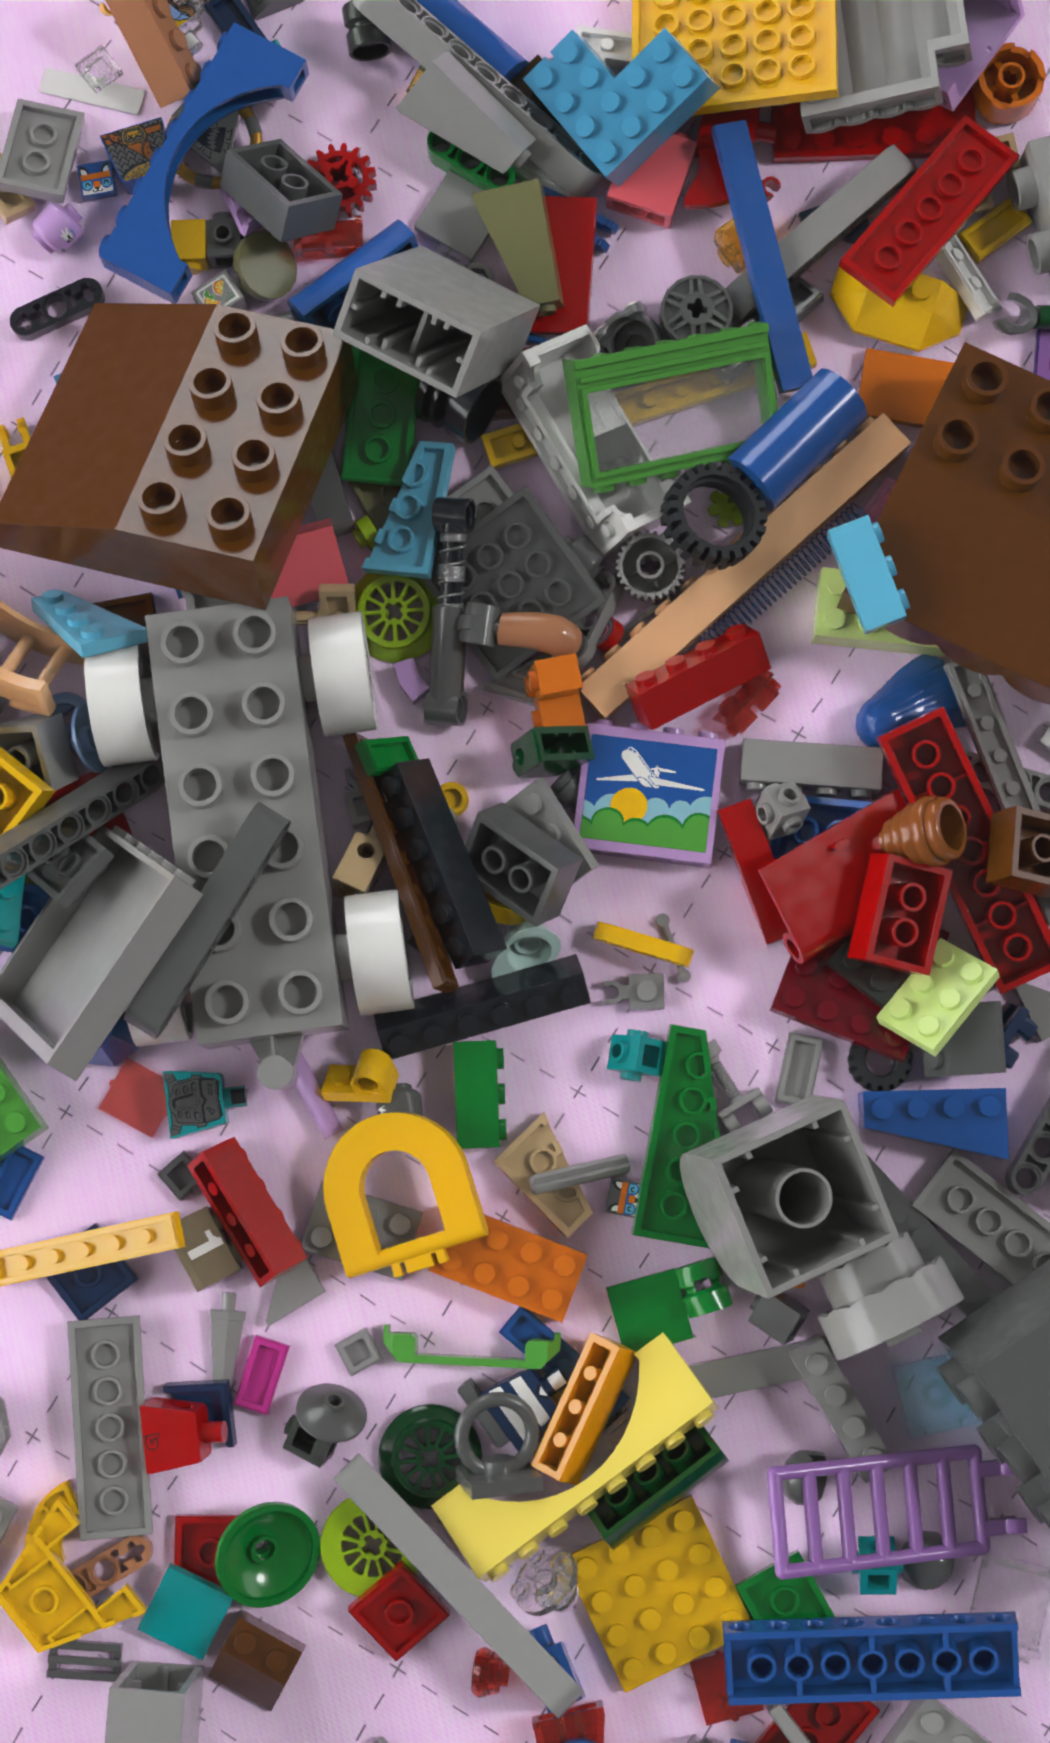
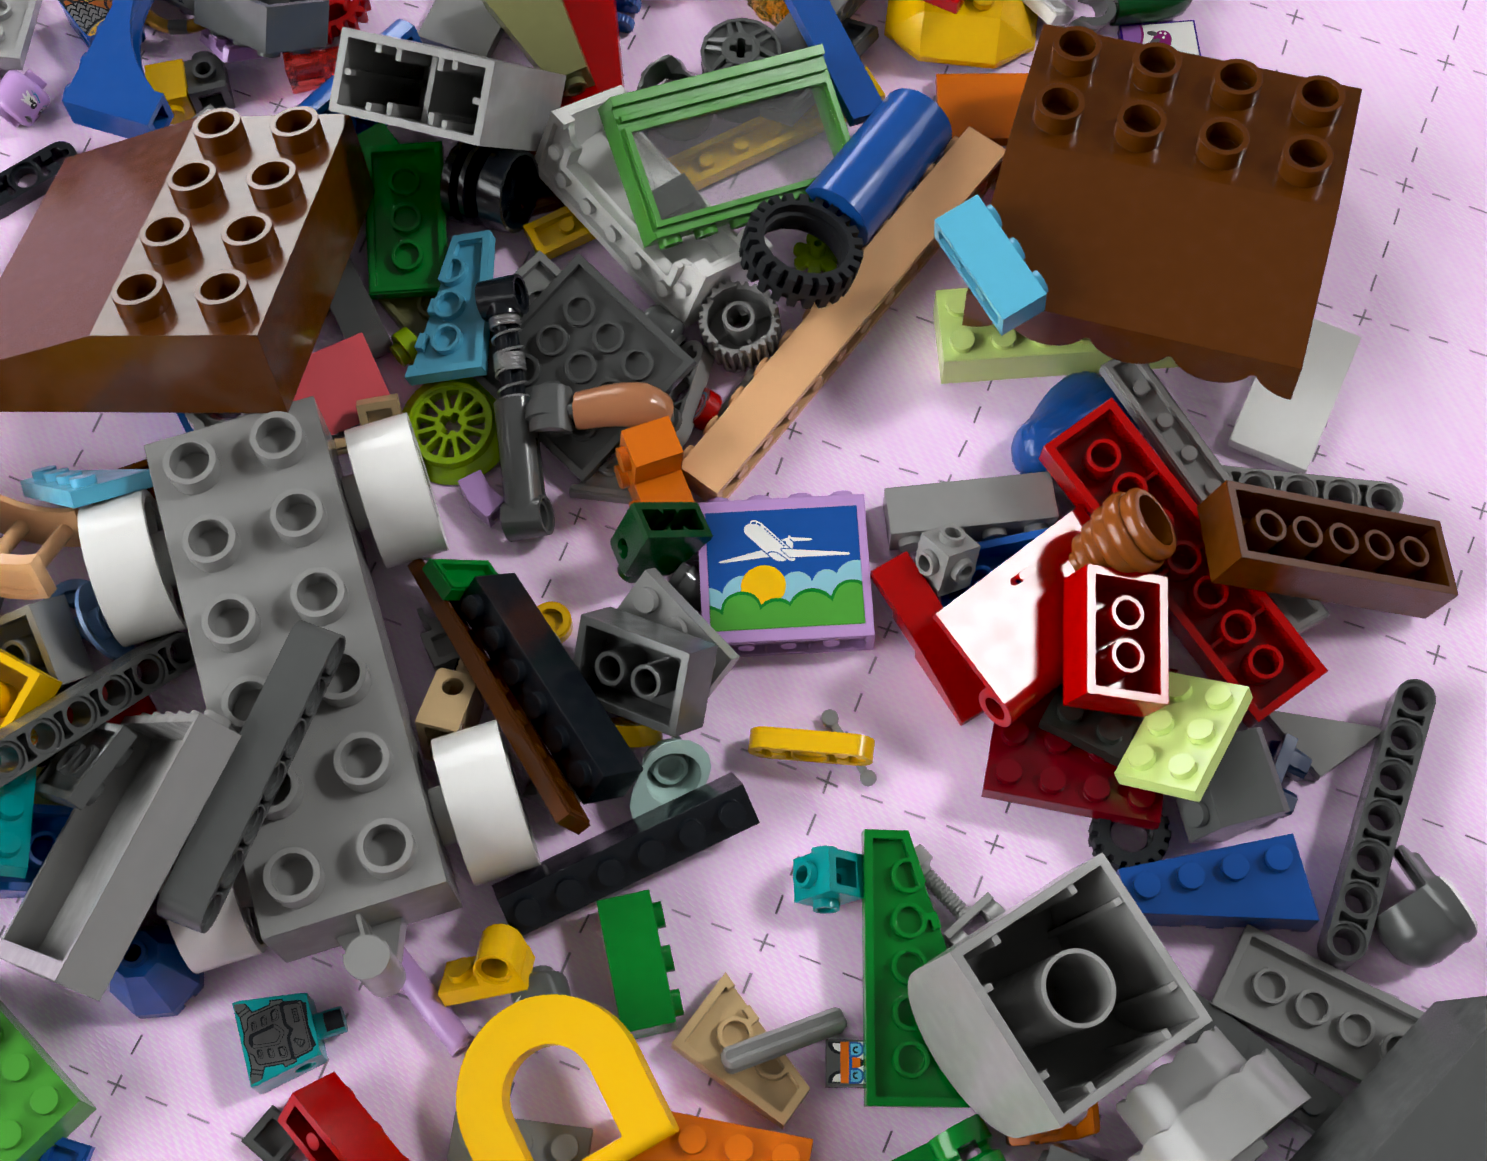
camera: 10 degrees left, 15 degrees down
(97, 180) = (60, 49): tile -> none
(137, 1098) = (205, 1050): clear red piece -> none
(265, 266) = (254, 89): olive tile -> none
(642, 991) = (822, 806): light grey plate -> none
(697, 676) = (816, 430): red brick -> none
(736, 710) = (889, 441): clear red hinge -> none
(799, 1068) = (1031, 857): light grey tile -> none
(857, 515) = (824, 396): blue piece -> none

